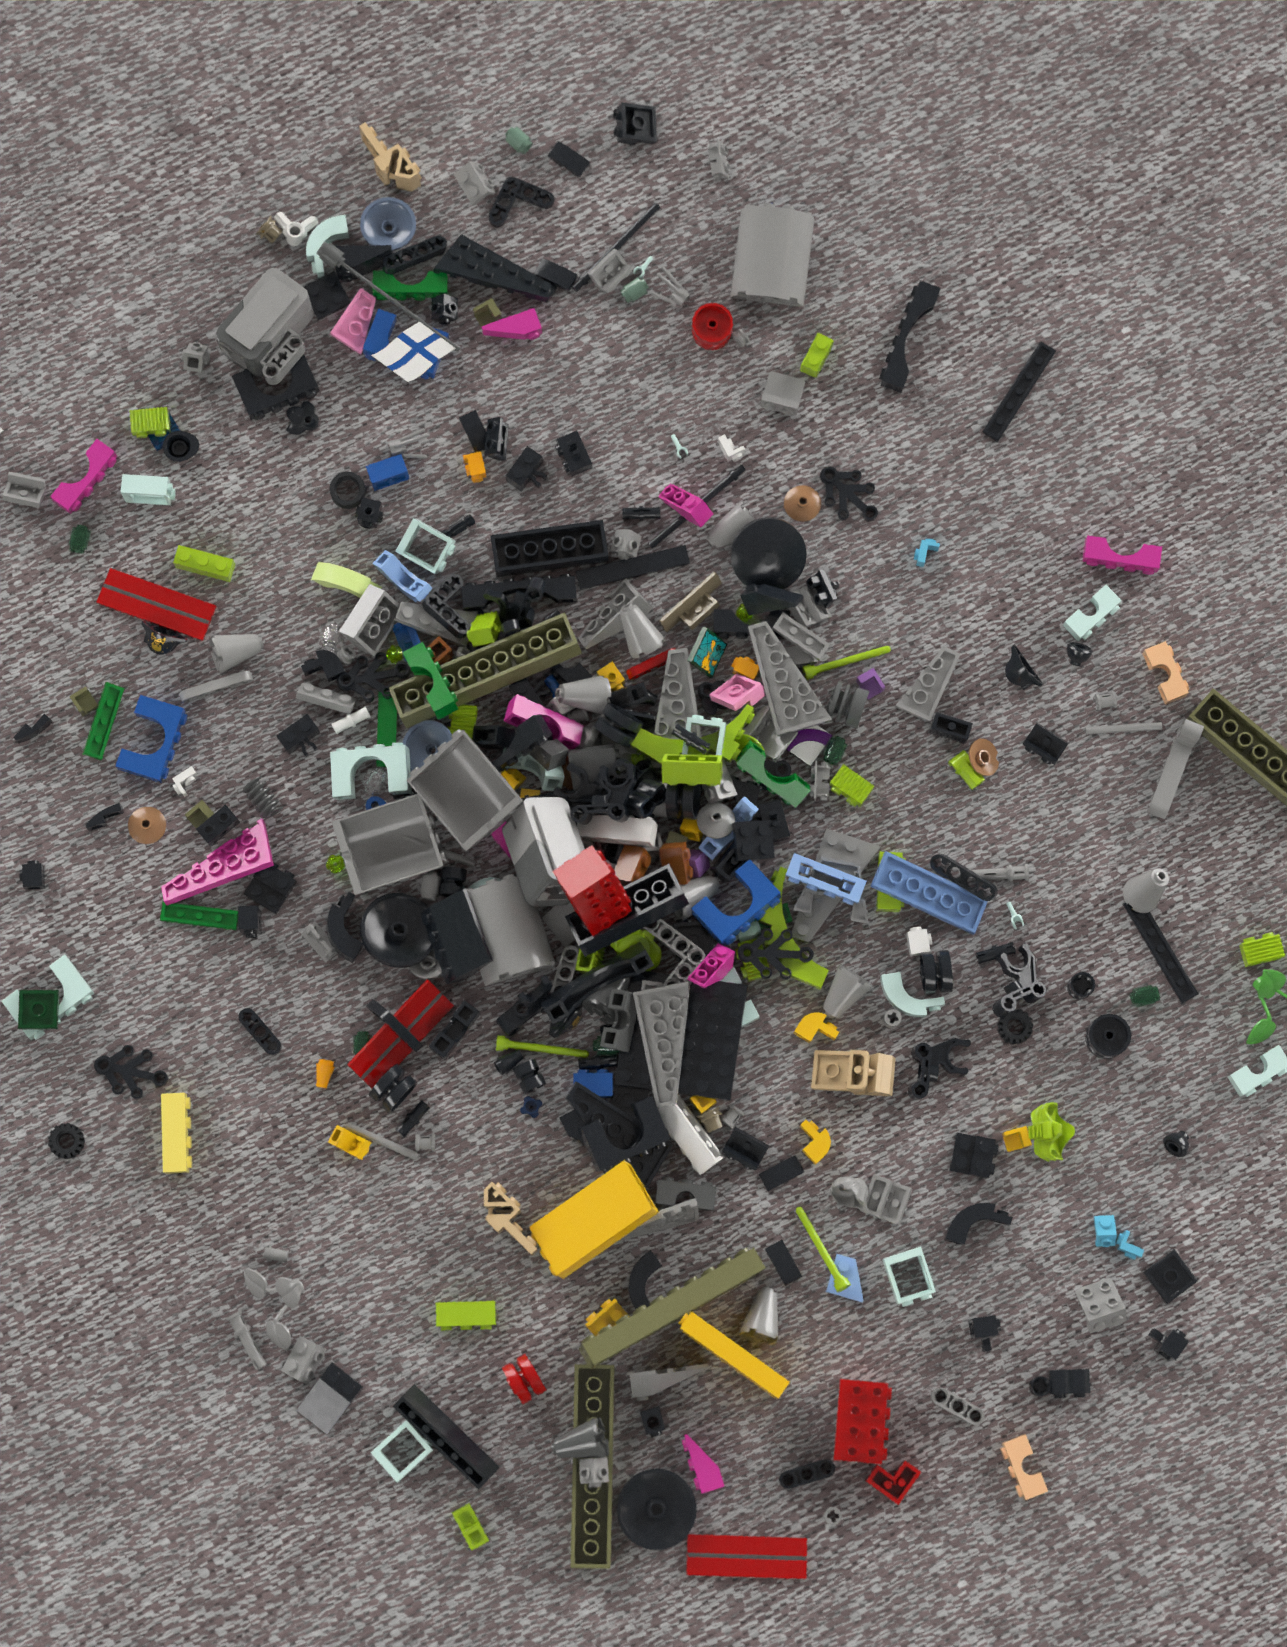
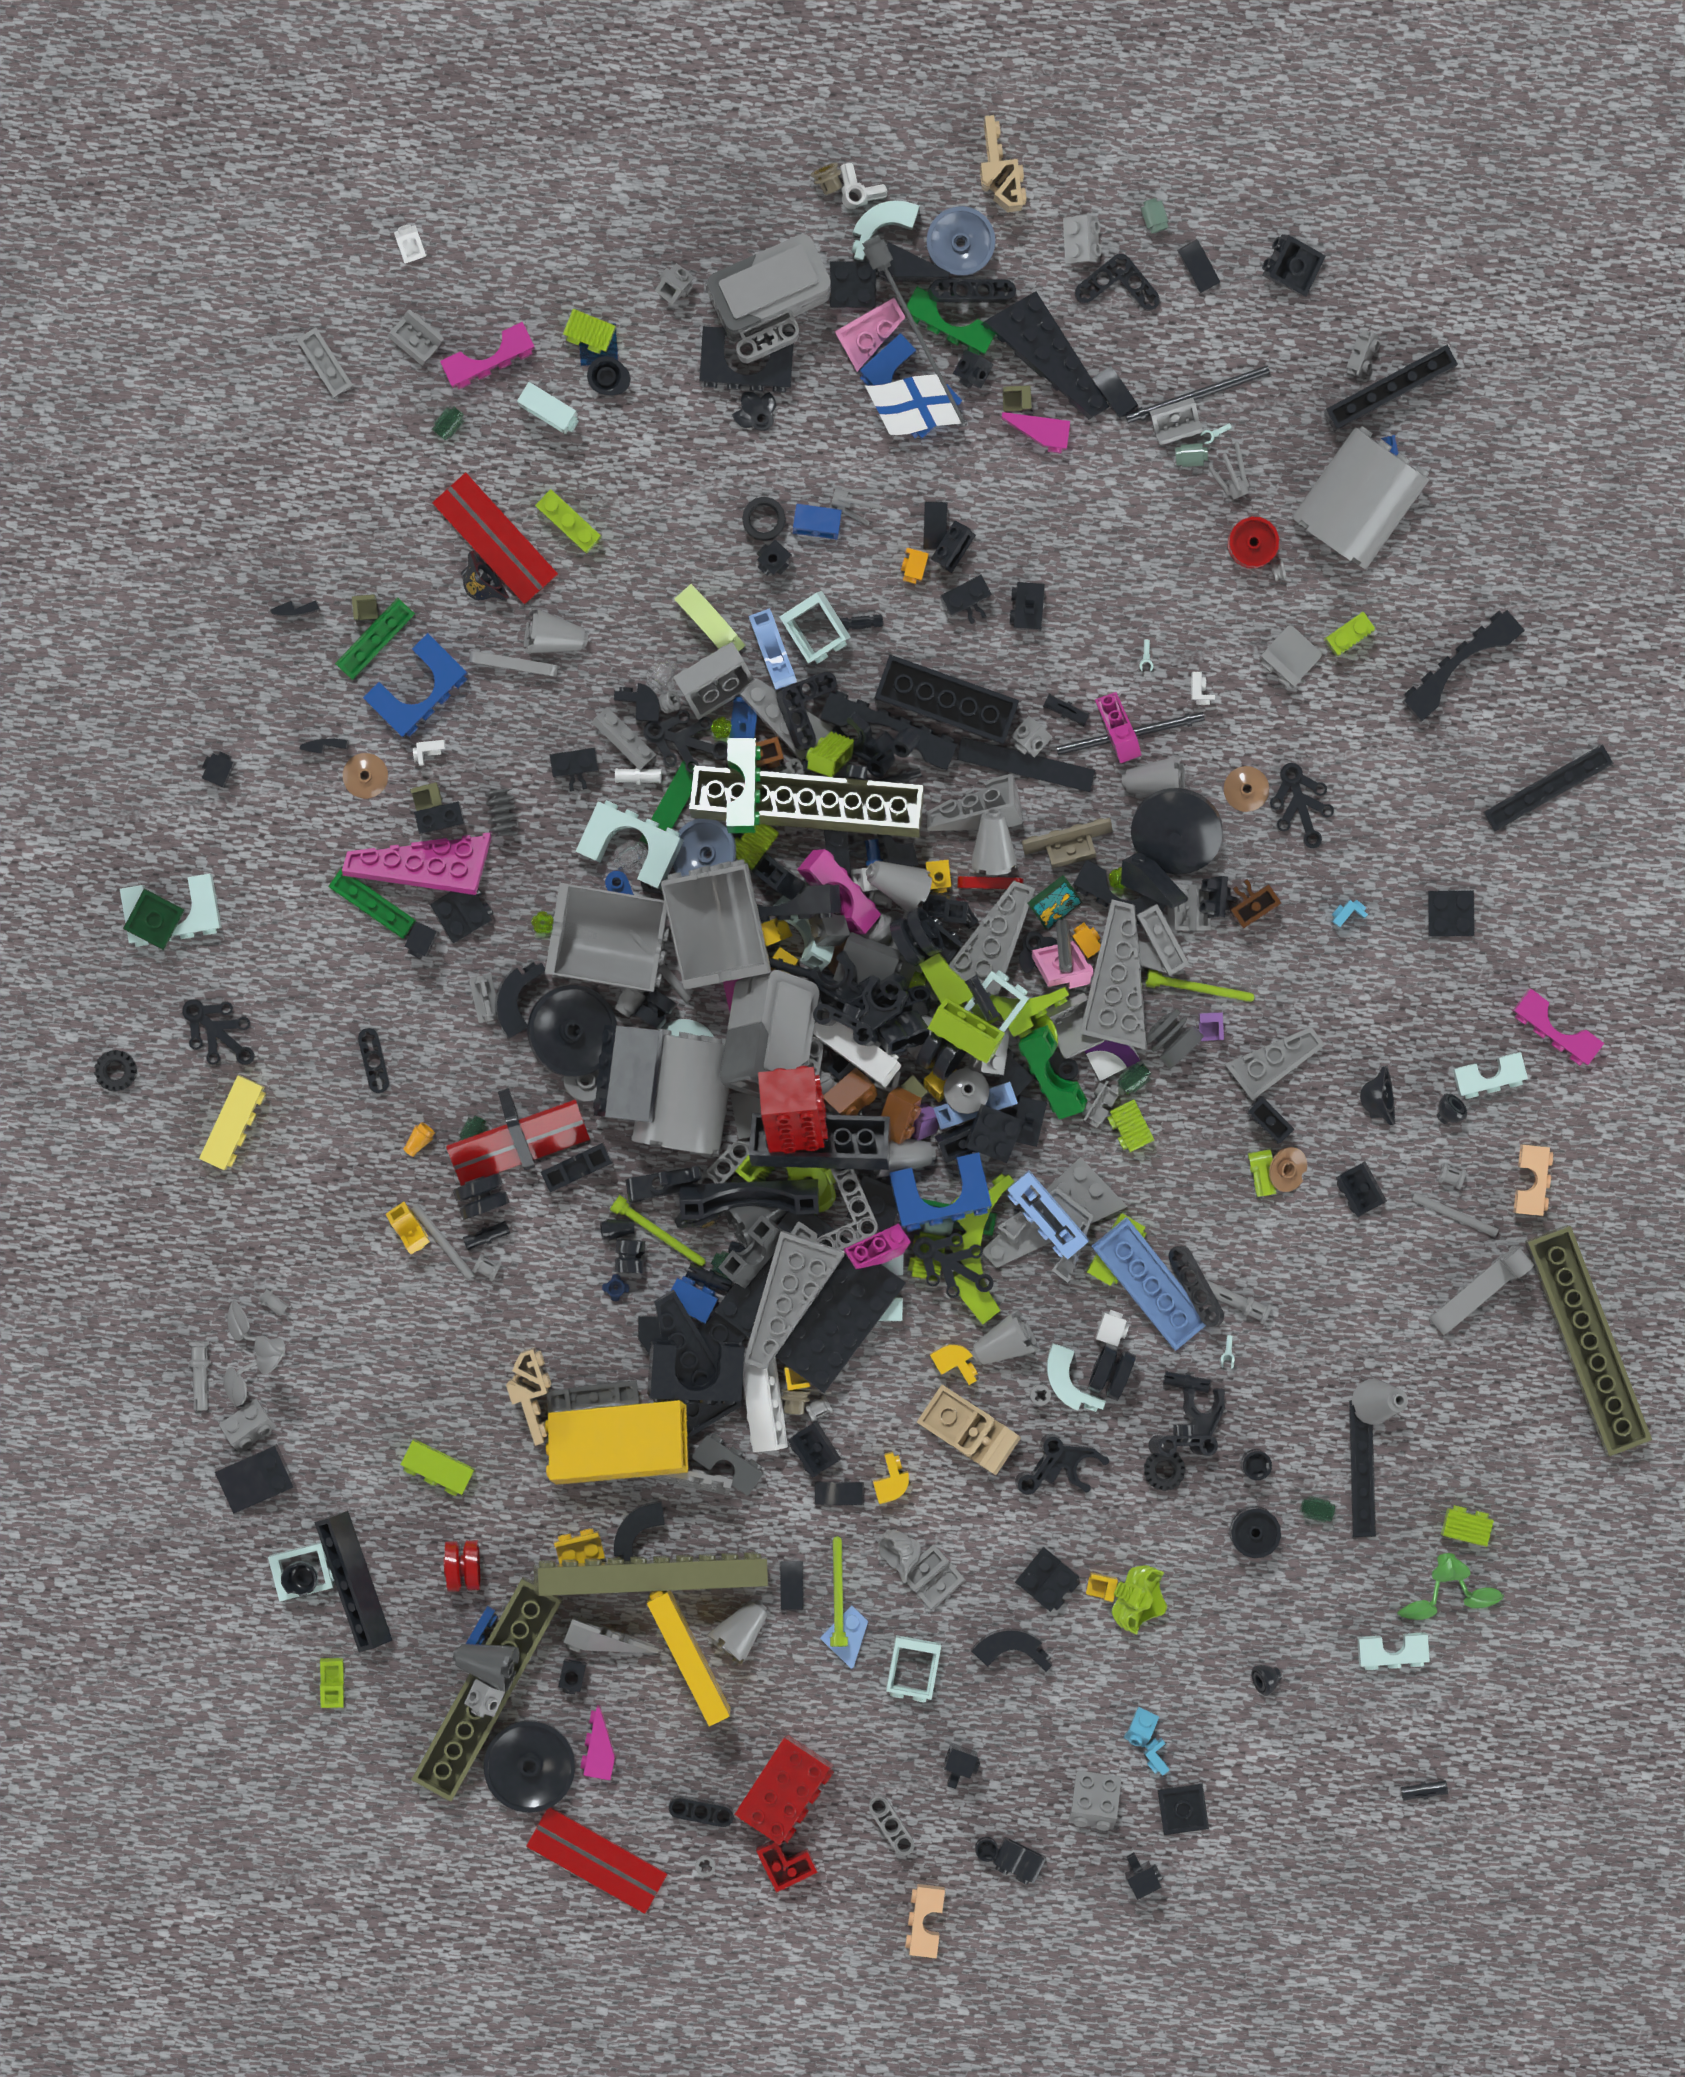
camera: 35 degrees right, 10 degrees up
(403, 1454) = (299, 1578): none -> black hair
(556, 1196) = (593, 1396): none -> dark grey slope
(564, 1413) = (487, 1619): none -> blue plate
(731, 678) = (1064, 945): none -> dark grey axle
(751, 171) = (1390, 388): none -> black brick
(854, 579) = (1255, 905): none -> reddish brown brick
(999, 514) = (1450, 913): none -> black plate

